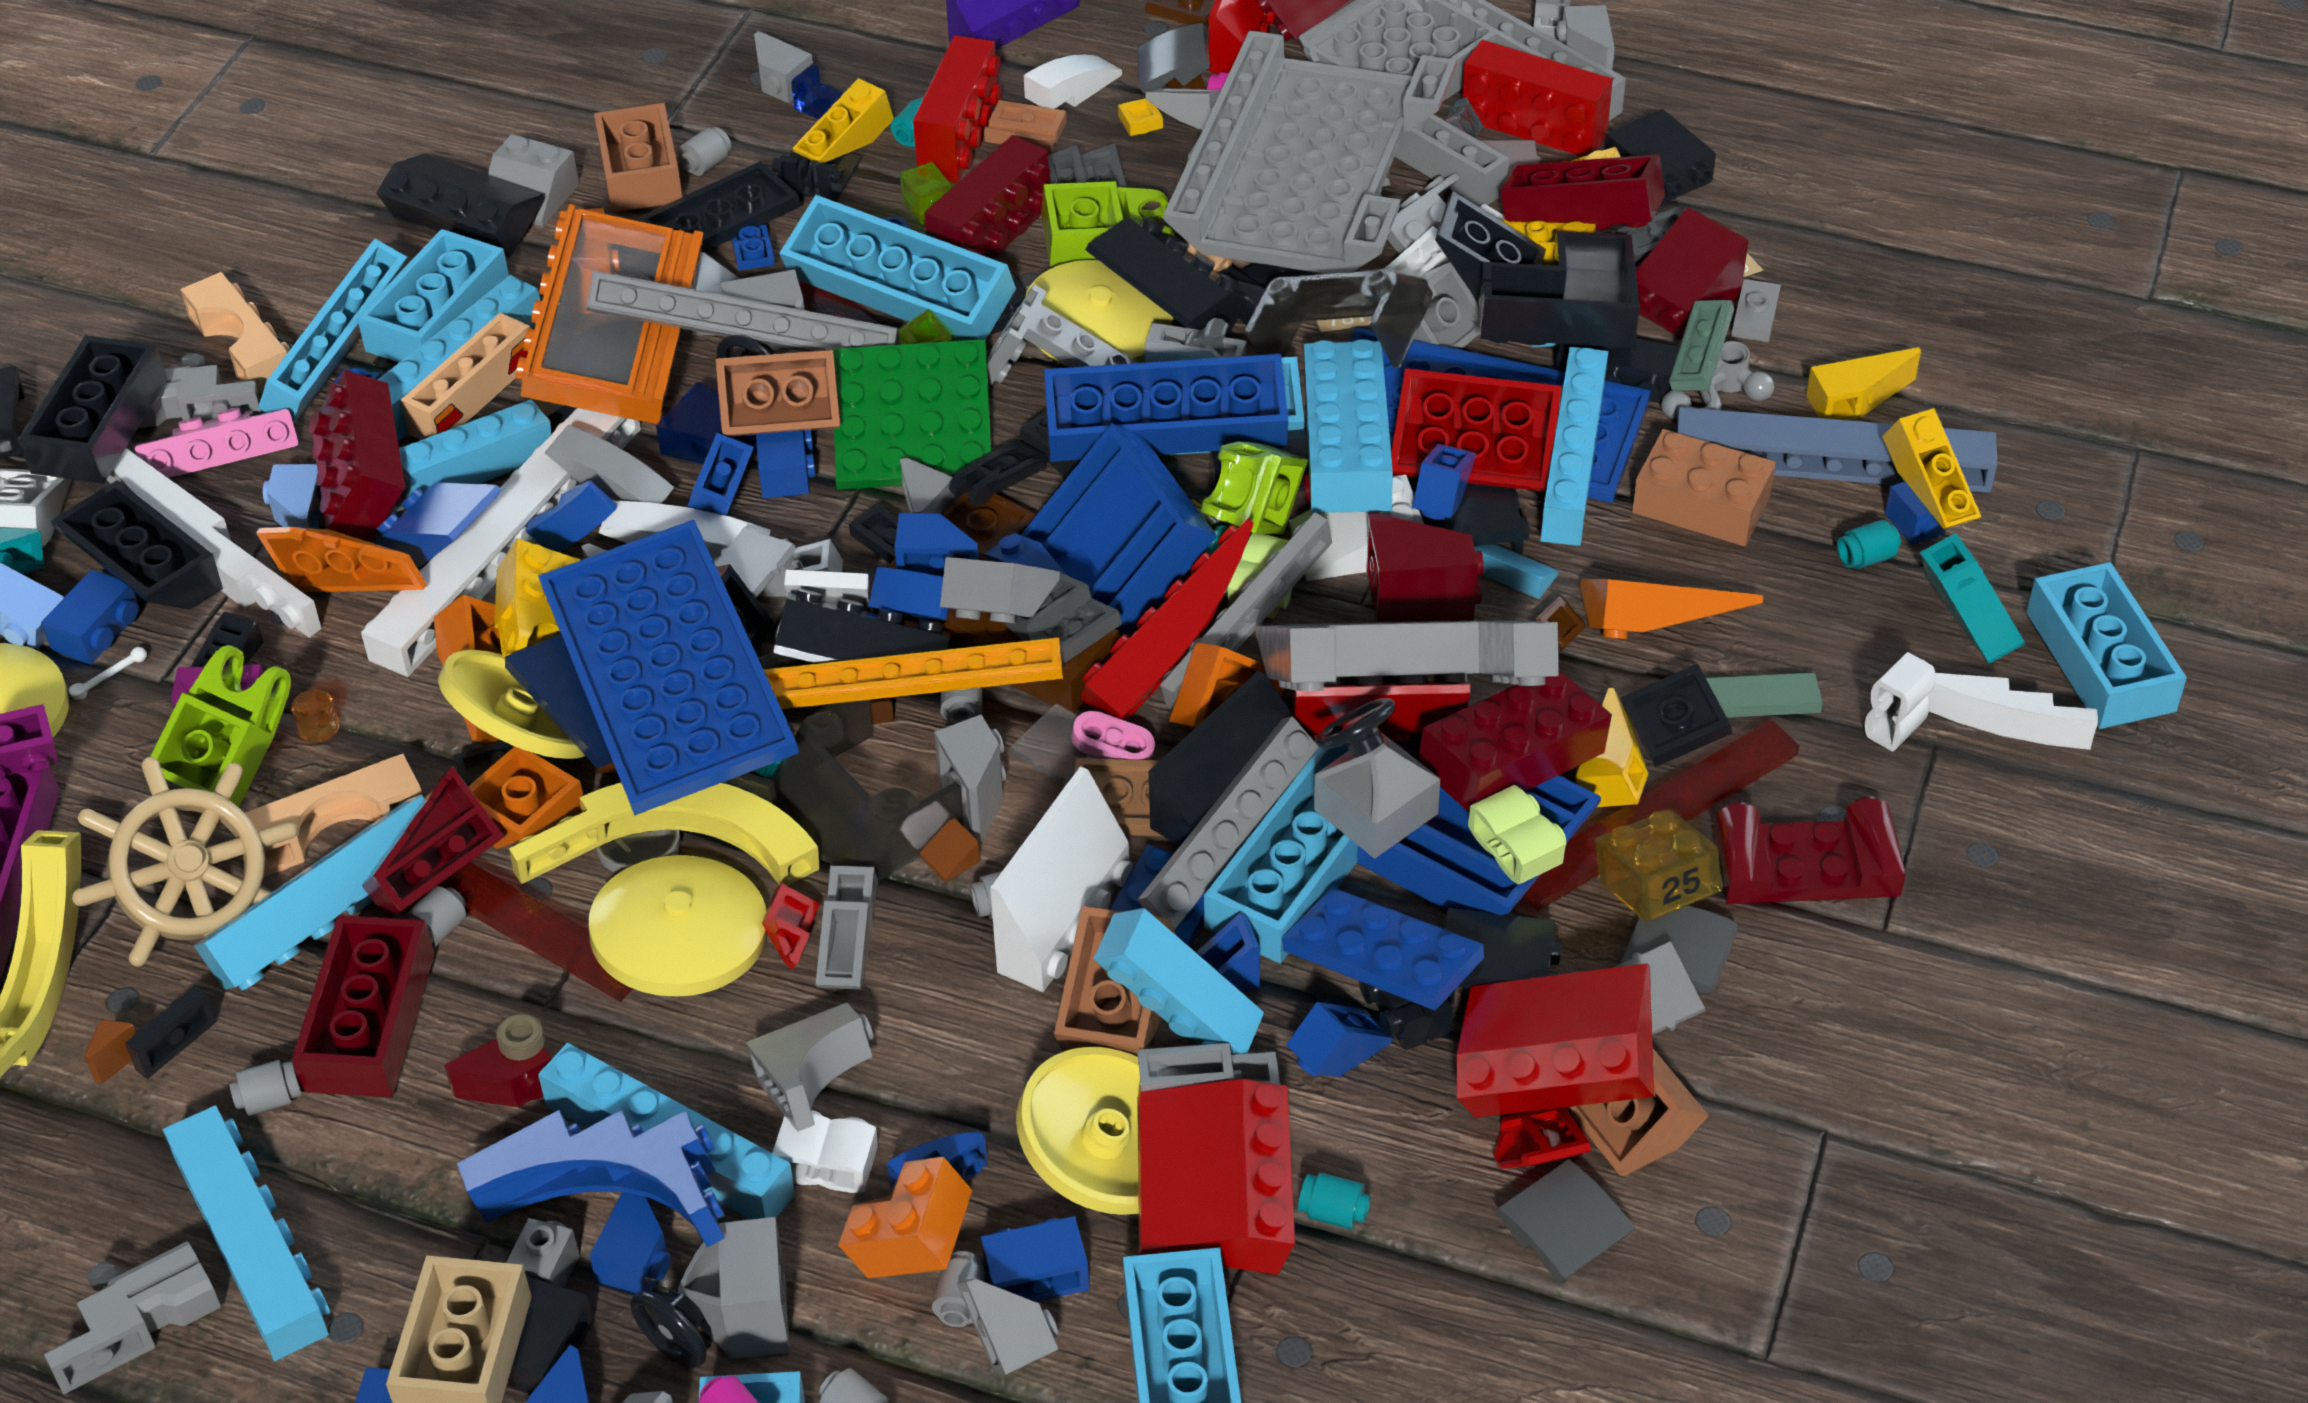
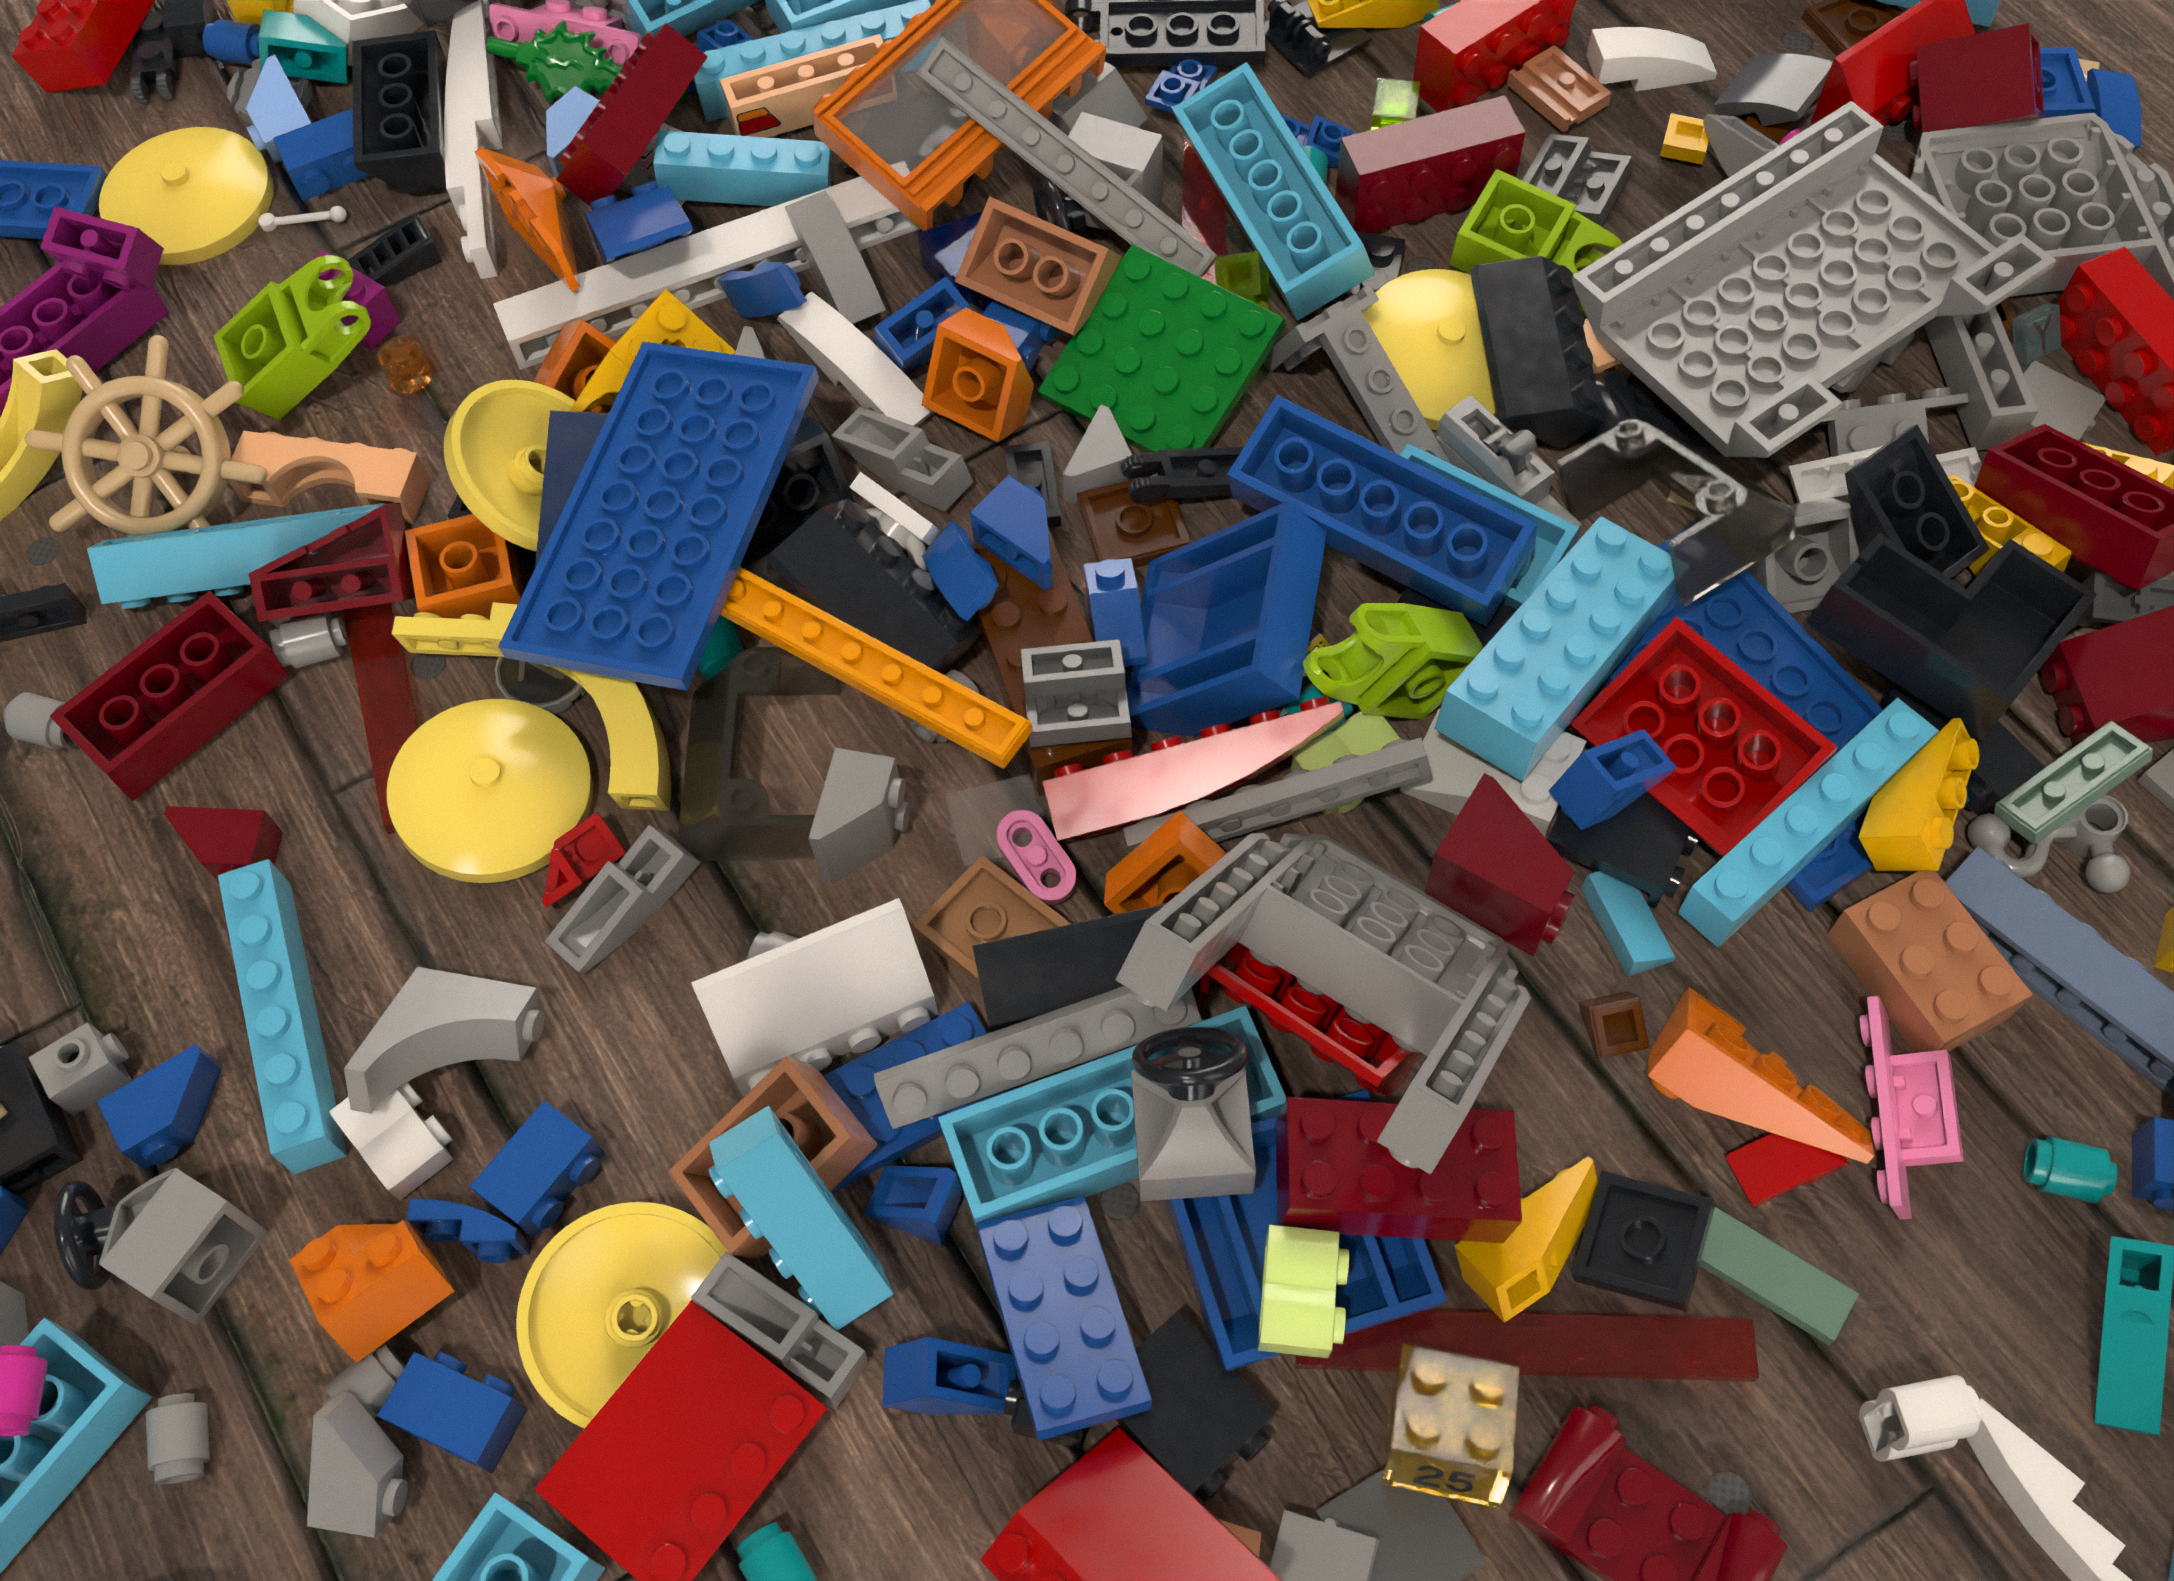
camera: 40 degrees right, 15 degrees up
(242, 458) = (562, 61): none -> green piece
(520, 1037) = (239, 824): dark tan tile -> none
(610, 1156) = (194, 1043): arch -> none
(756, 558) = (873, 435): light grey piece -> none
(797, 484) = (978, 376): none -> orange slope
(951, 851) = (788, 877): dark orange slope -> none
(953, 1095) = (538, 1170): none -> blue brick
(994, 588) = (1030, 620): light grey slope -> none
(1628, 402) = (1916, 810): none -> yellow slope
(1714, 637) = (1779, 1165): none -> red slope
(1762, 561) = (1915, 1108): none -> bright pink bracket

